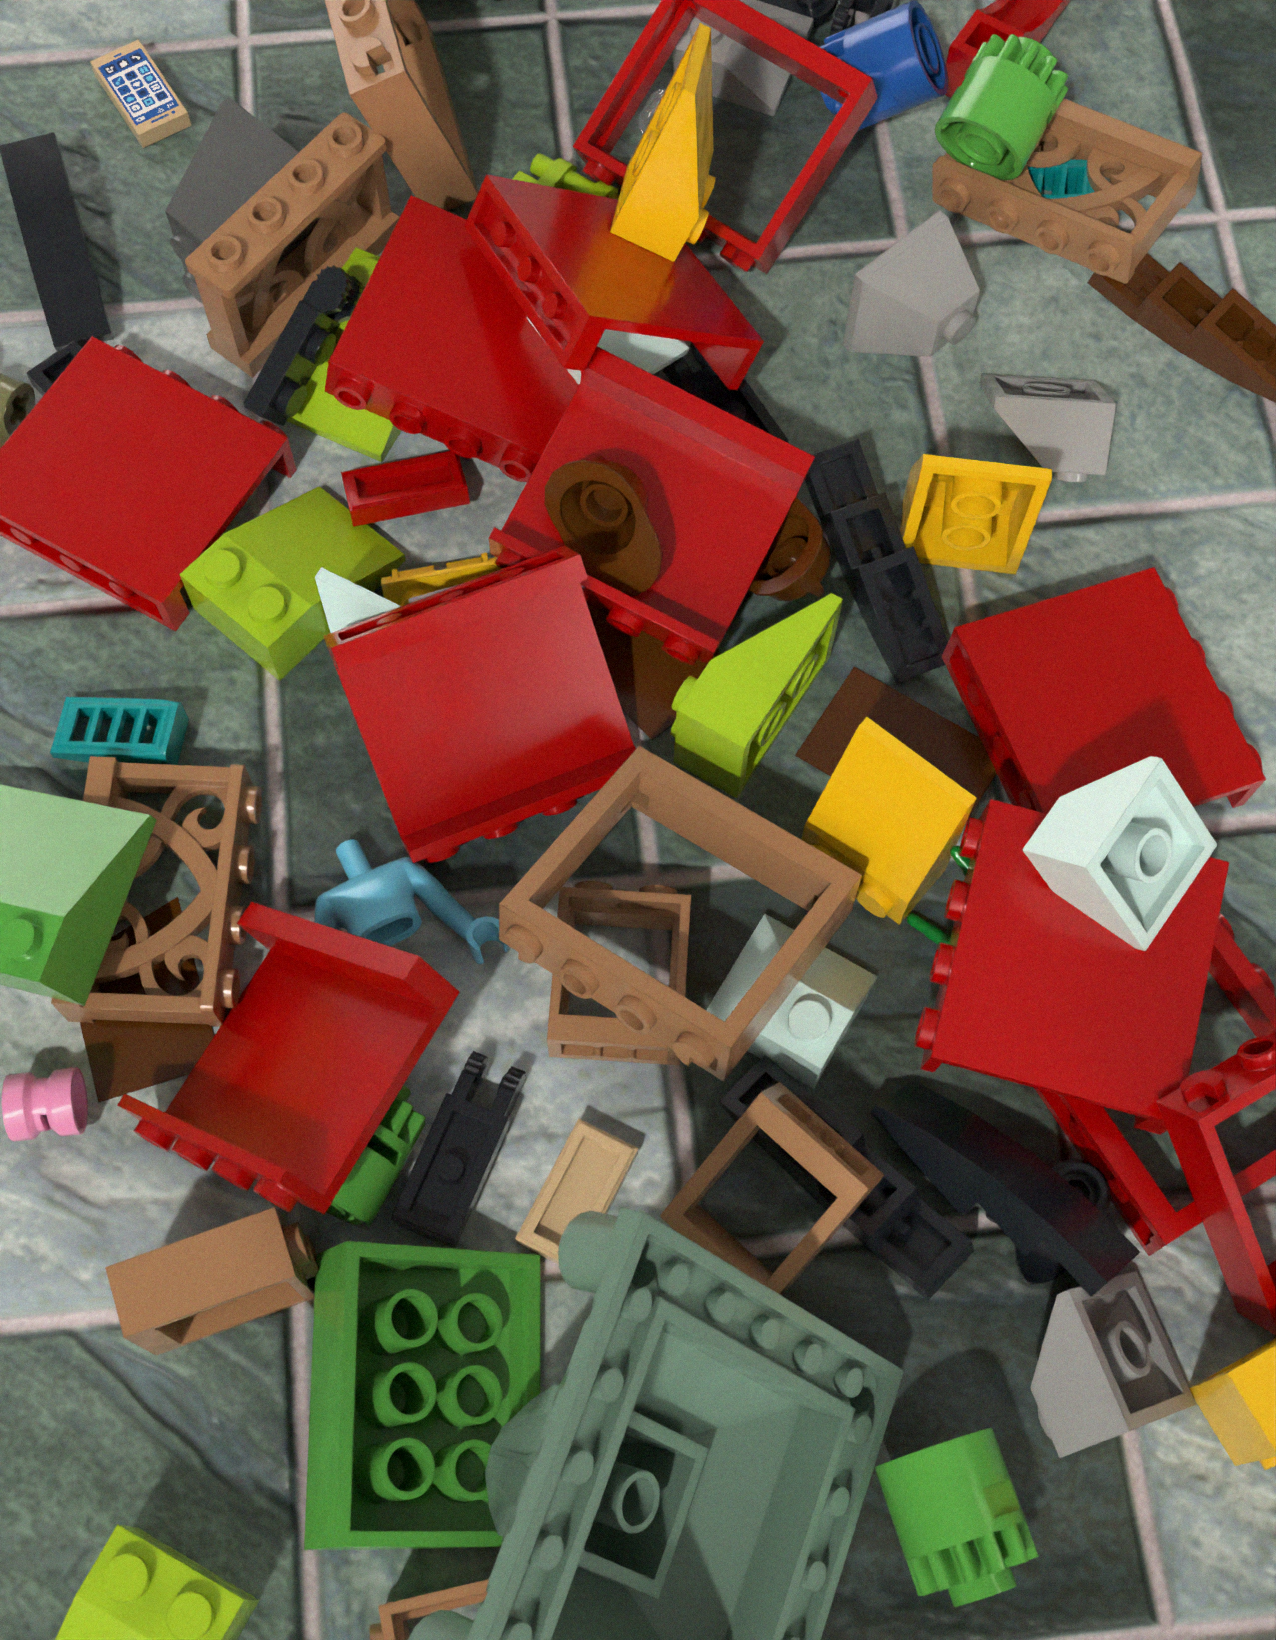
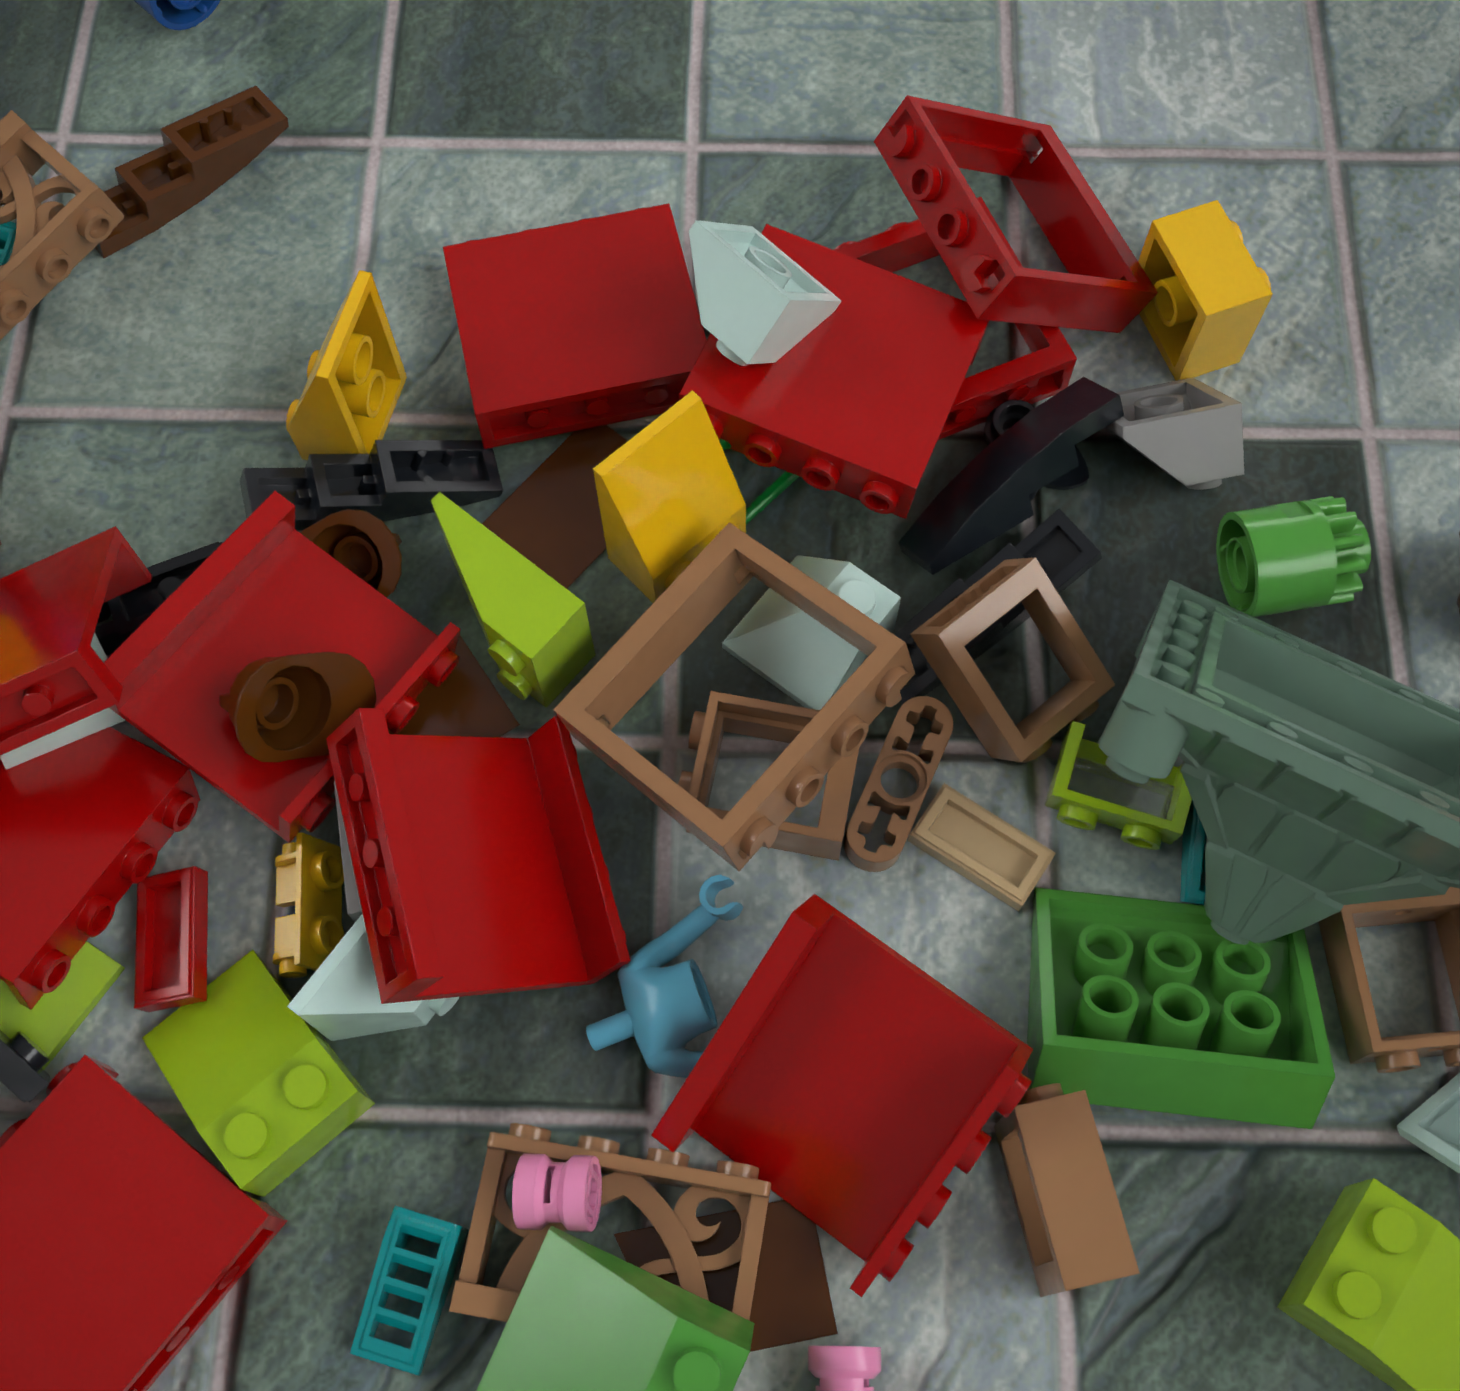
camera: 80 degrees left, 0 degrees up
(188, 823) = (557, 1192): none -> bright pink wheel
(457, 1156) = (945, 949): black hinge -> none
(622, 1076) = (899, 738): none -> medium nougat beam
(913, 295) = (89, 393): light grey slope -> none
(1058, 421) = (256, 302): light grey slope -> none

